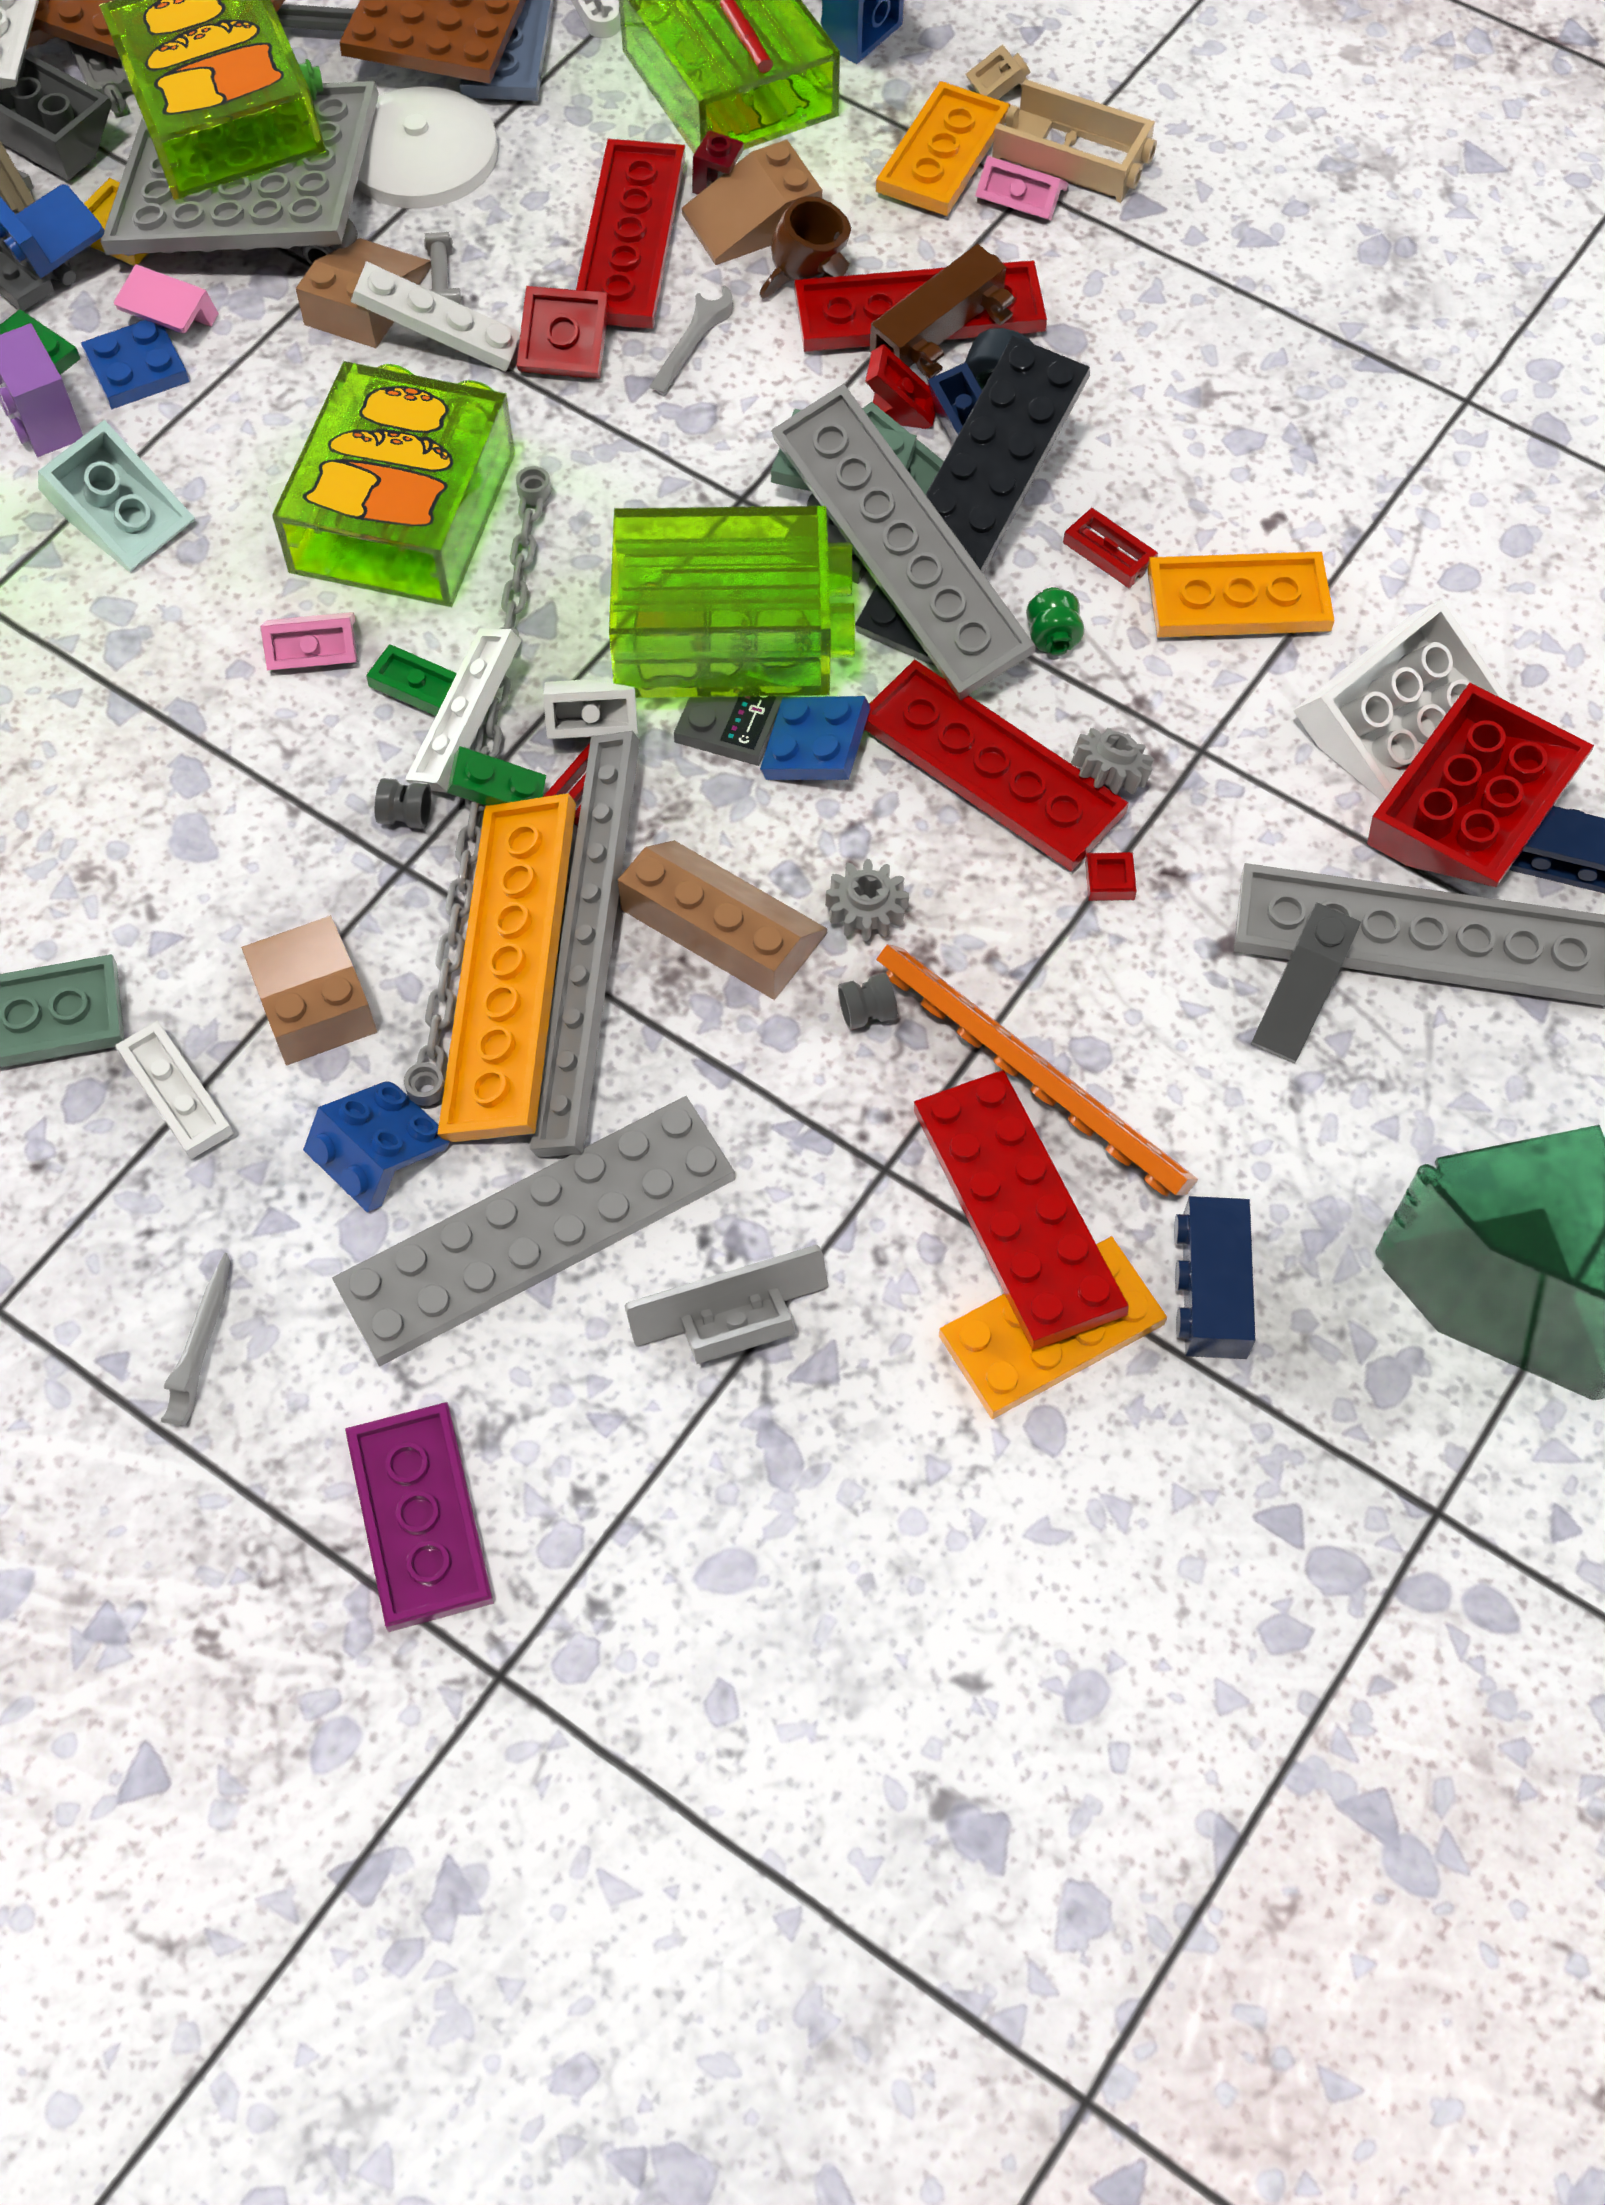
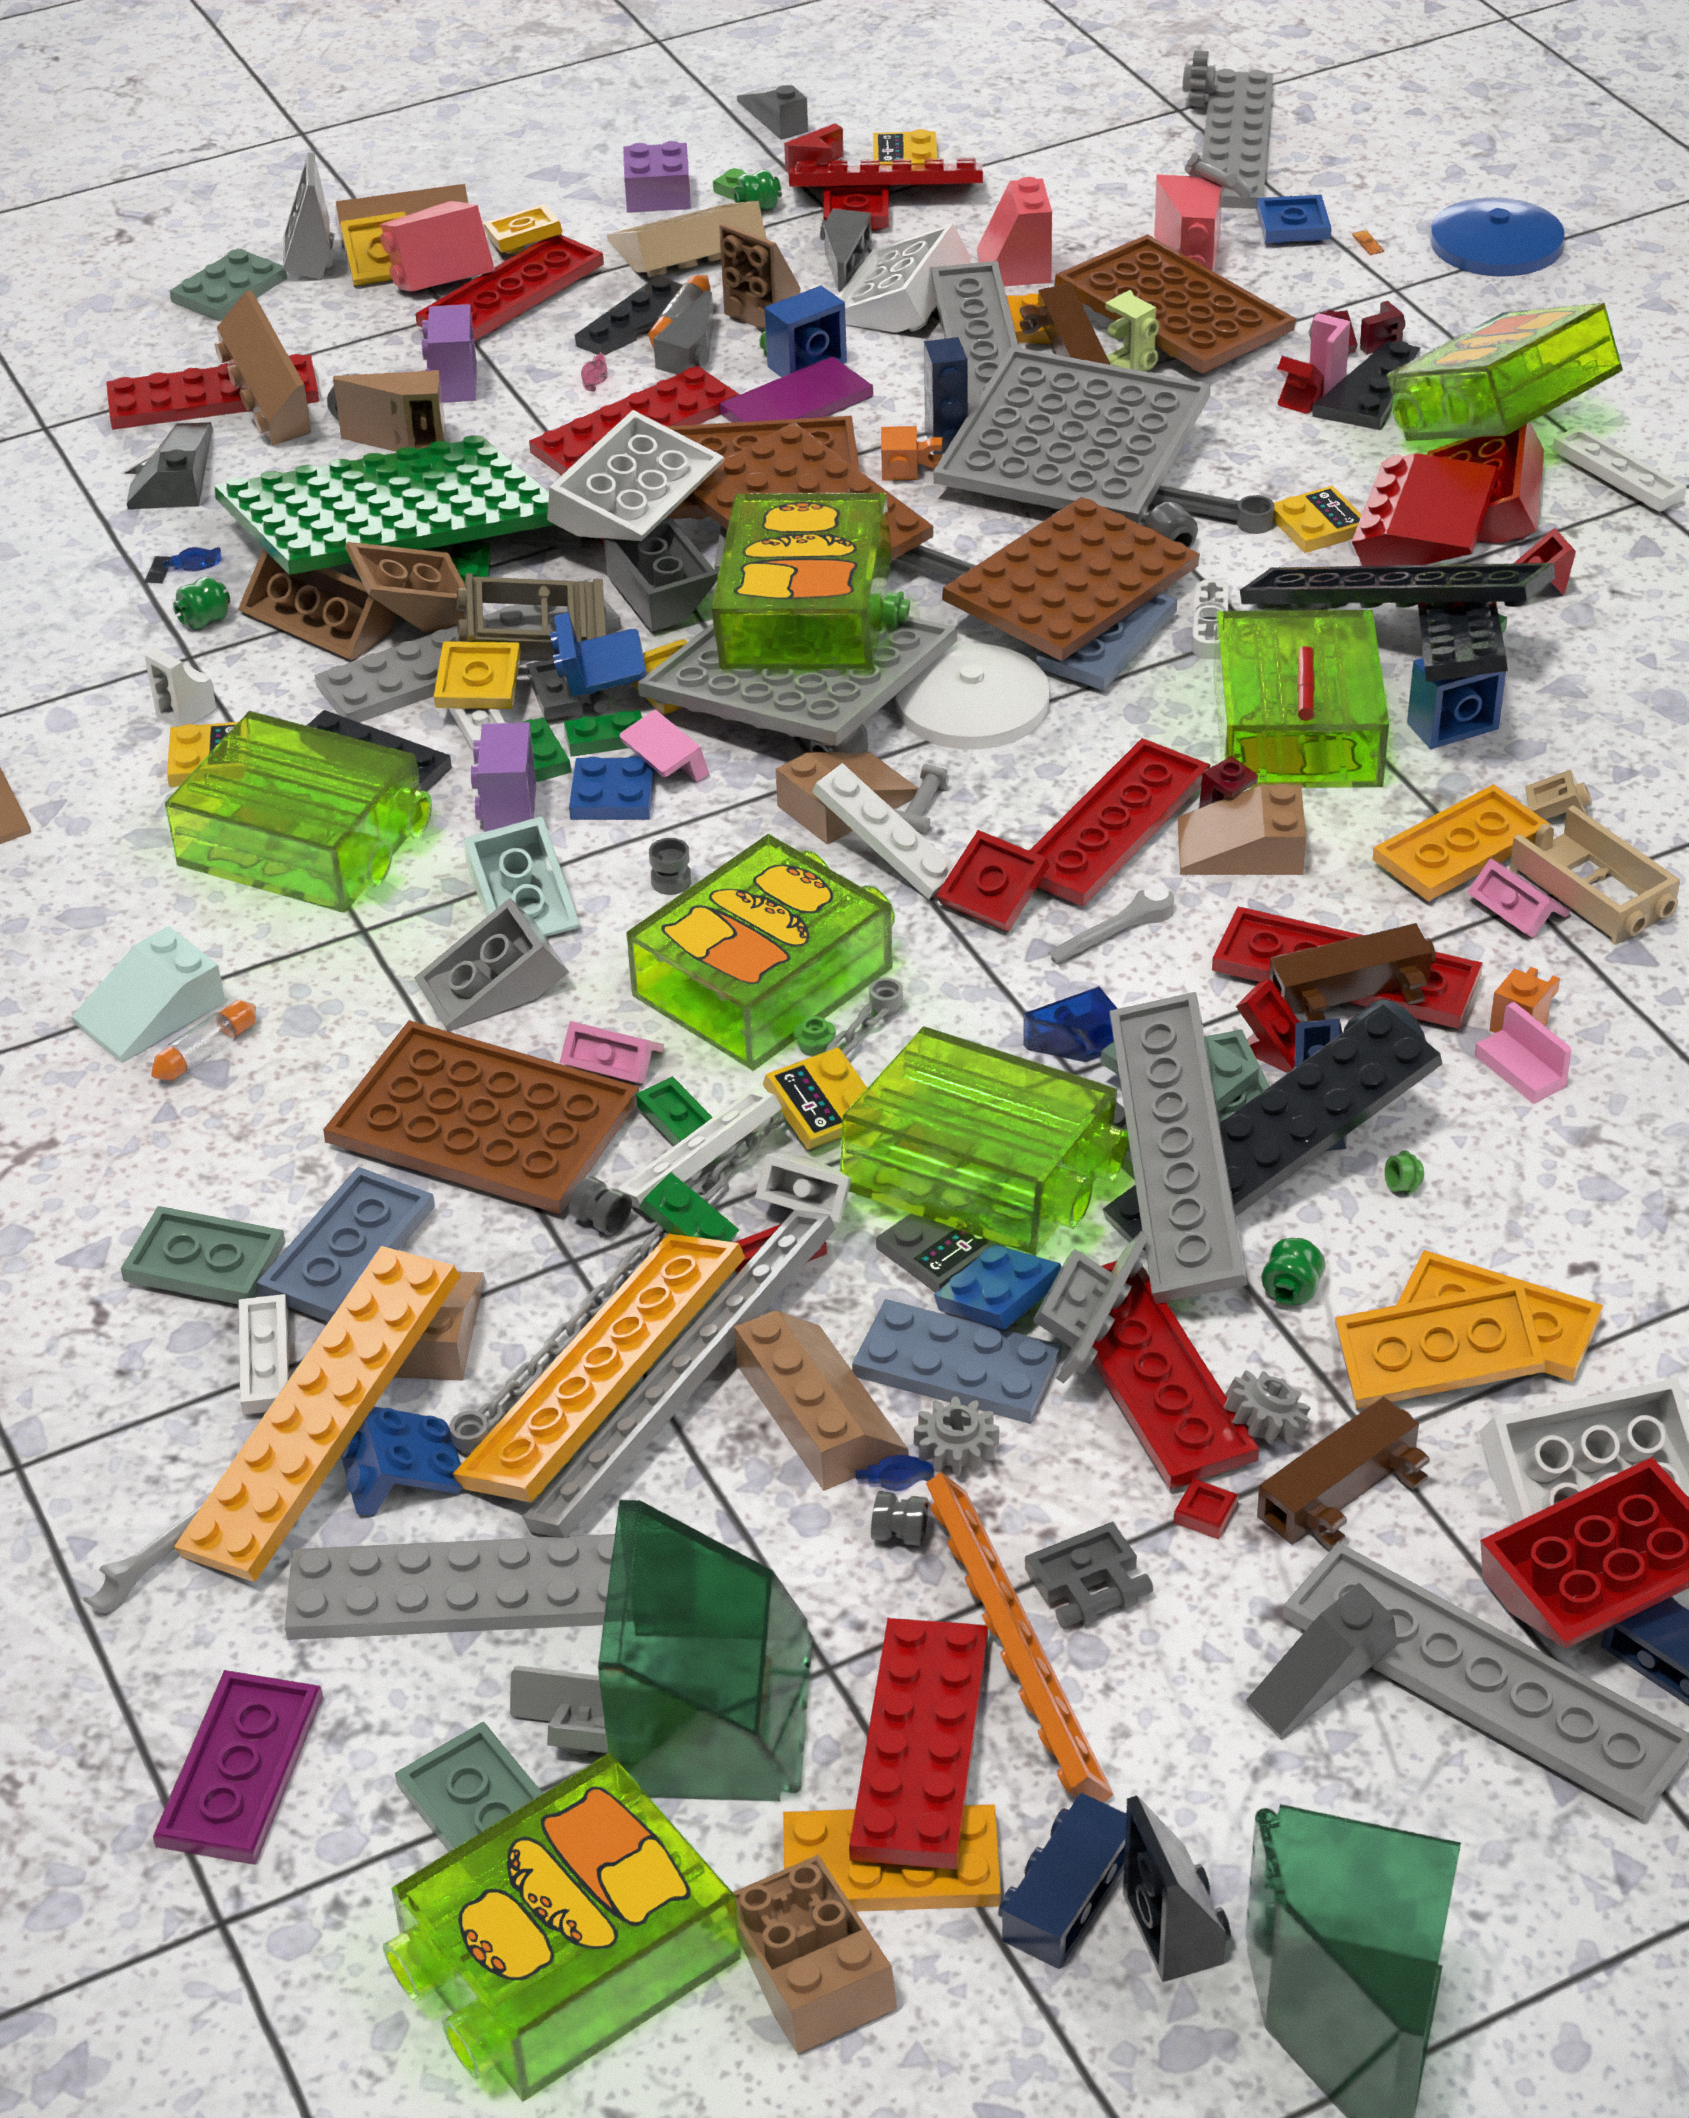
camera: 30 degrees right, 20 degrees down
(86, 306) = (598, 733): none -> green plate
(140, 599) = (491, 969): none -> light grey slope
(181, 943) = (342, 1241): none -> sand blue plate
(227, 755) = (482, 1116): none -> dark orange plate
(247, 425) = (670, 866): none -> dark grey wheel
(279, 1134) = (317, 1413): none -> light orange plate
(490, 550) = (814, 1035): none -> bright green plate
(543, 611) = (816, 1095): none -> yellow plate
(672, 1449) = (466, 1785): none -> sand green plate
(726, 453) = (1071, 1027): none -> clear blue slope
(808, 243) = (1263, 878): reddish brown piece -> none
(810, 1228) = (701, 1665): none -> clear green windscreen
(816, 824) = (957, 1358): none -> sand blue plate
(829, 1540) = (561, 1928): none -> clear neon green brick
(831, 955) = (897, 1472): none -> clear blue piece
(911, 725) = (1081, 1300): none -> light grey bracket
(1045, 973) = (1081, 1563): none -> dark grey plate
(1049, 1451) = (812, 1954): none -> medium nougat slope
(1085, 489) = (1404, 1172): none -> bright green plate
(1091, 290) = (1528, 992): none -> orange brick
(1105, 552) = (1404, 1254): red tile -> none
(1119, 335) = (1526, 1055): none -> bright pink panel
(1202, 794) = (1338, 1471): none -> reddish brown brick
(1219, 643) = (1440, 1344): none -> light orange plate
(1317, 1263) = (1170, 1898): none -> black slope

